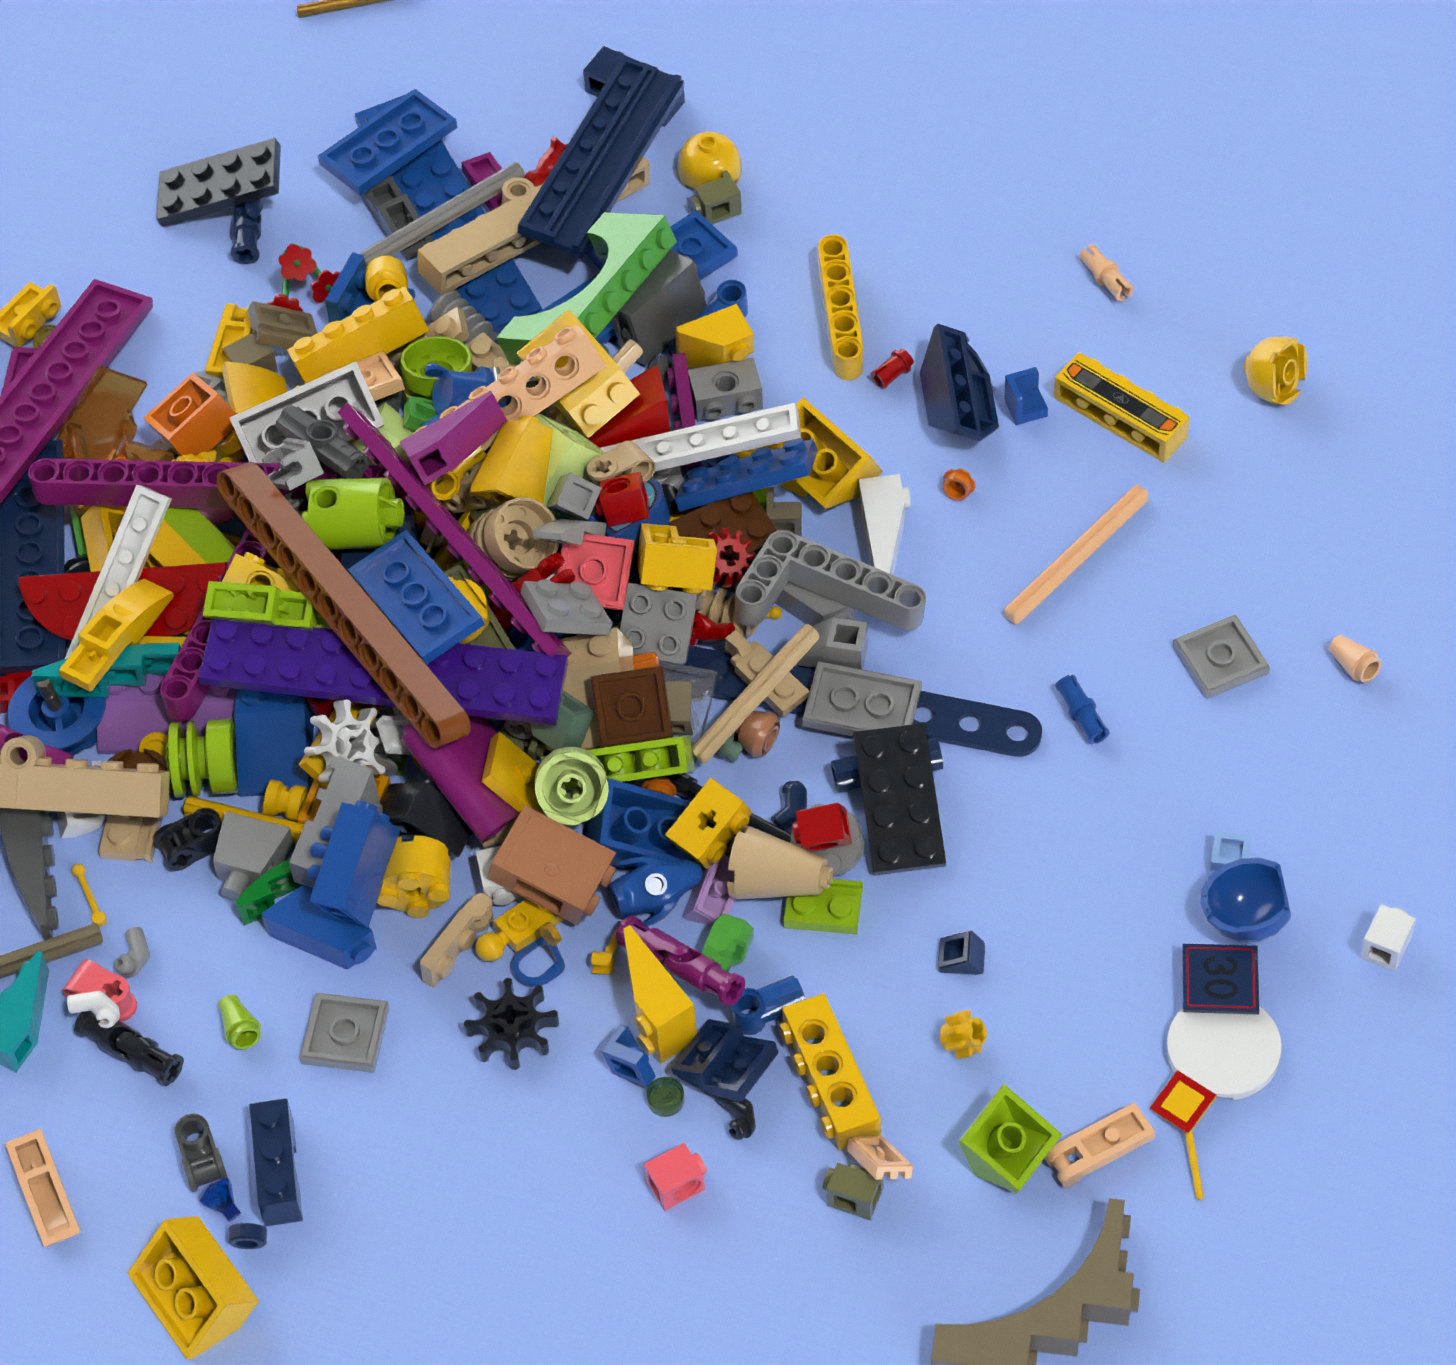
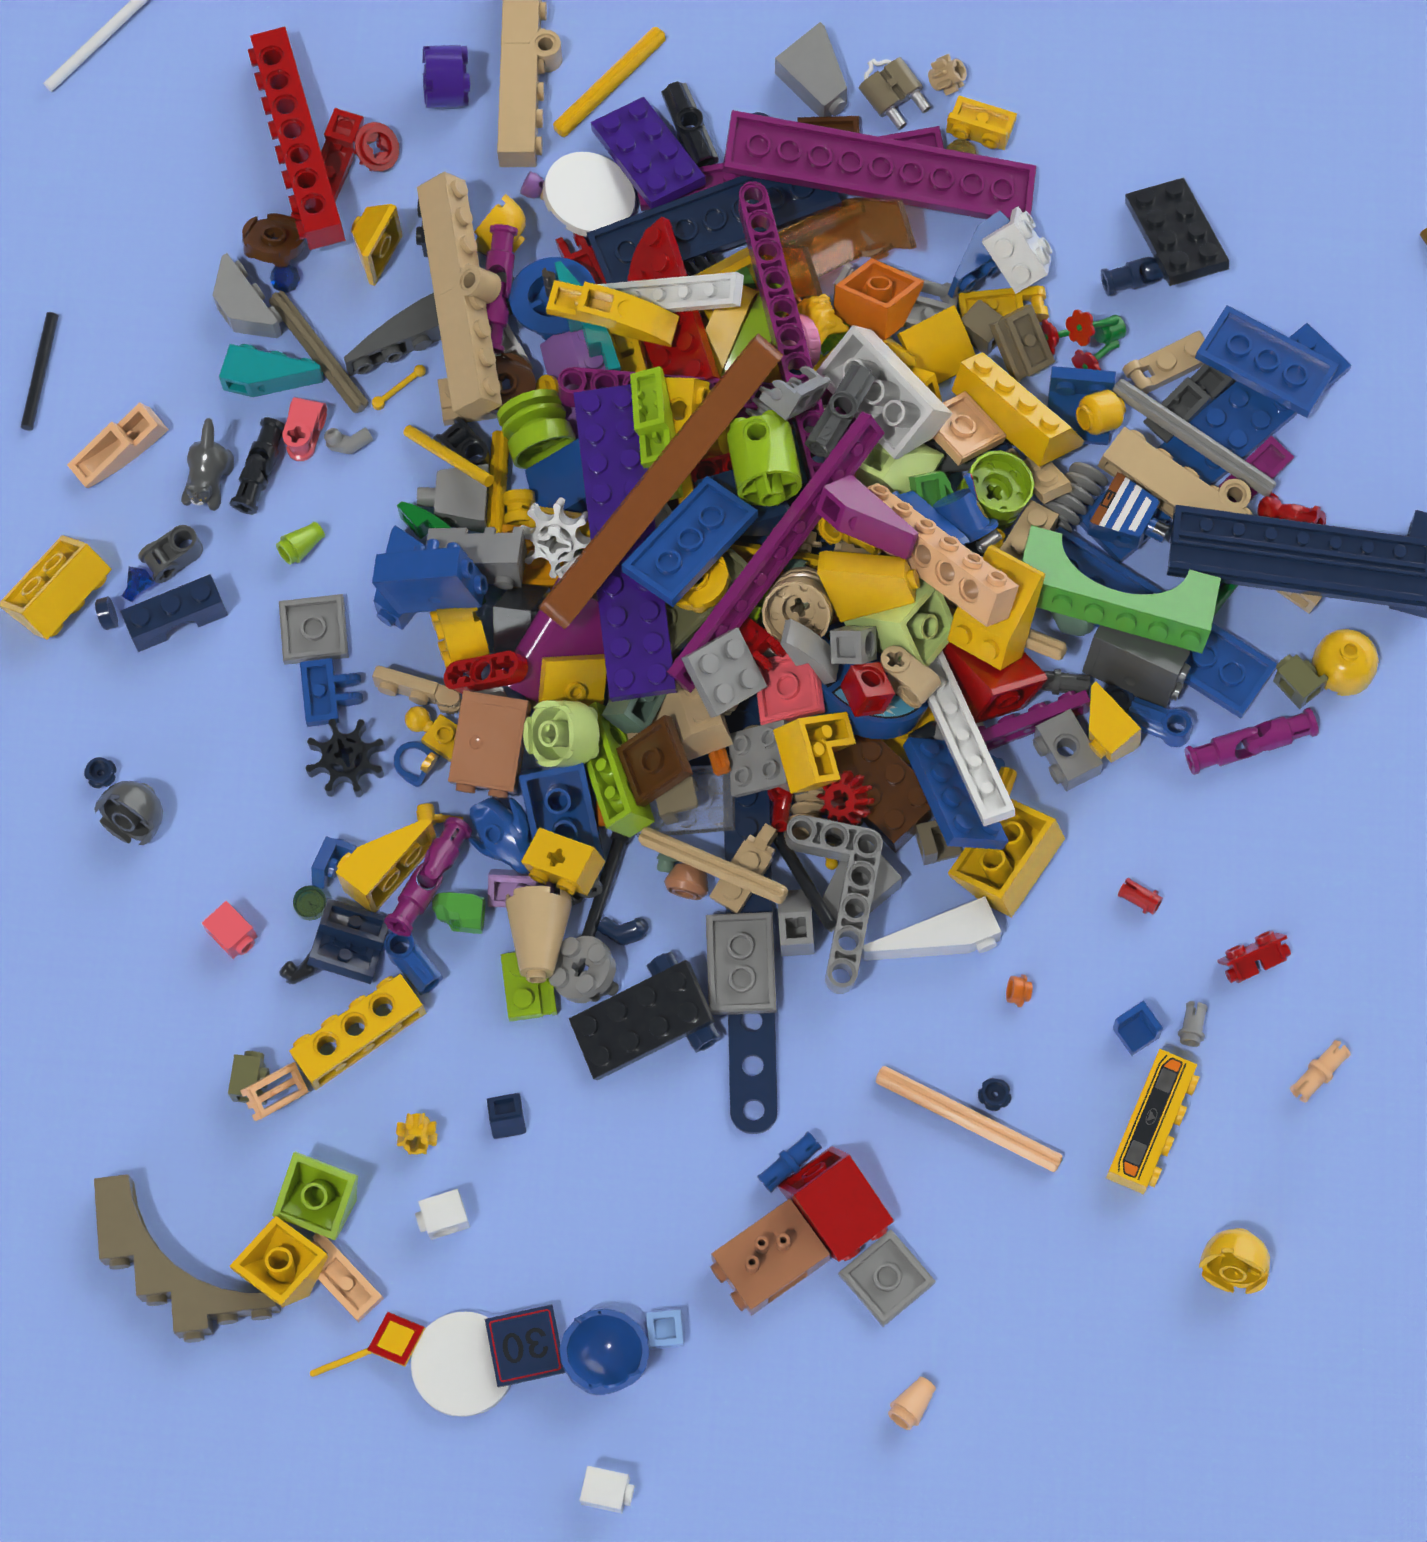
camera: 75 degrees right, 15 degrees up
(98, 1004) = (272, 437): white arm -> none
(106, 1096) = (206, 465): none -> dark grey animal
(172, 337) = (977, 260): none -> slope
(189, 299) = (1019, 251): none -> white bracket
(199, 847) = (448, 455): none -> yellow bar
(348, 223) = (1166, 363): none -> tan plate
(423, 1034) = (320, 692): none -> blue hinge
(436, 1272) = (96, 765): none -> dark blue plate
(475, 874) = (497, 676): none -> red beam
(502, 281) = (1127, 515): none -> torso
(503, 1248) = (130, 811): none -> dark grey cylinder
(765, 250) = (1256, 739): none -> magenta piece
(811, 618) = (805, 882): none -> black bar
(822, 827) = (576, 959): red brick -> none
(840, 307) = (1210, 817): yellow beam -> none
(957, 386) = (1122, 964): dark blue wedge -> none
(976, 288) = (1242, 959): none -> red hinge
(1032, 356) = (1193, 1023): none -> light grey pin
(1058, 519) = (994, 1085): none -> dark blue plate
(1058, 1028) = (442, 1215): none -> white brick
(1075, 1185) = (281, 1263): none -> yellow slope
(1136, 673) = (837, 1203): none -> red slope
(1178, 744) = (769, 1258): none -> nougat piece

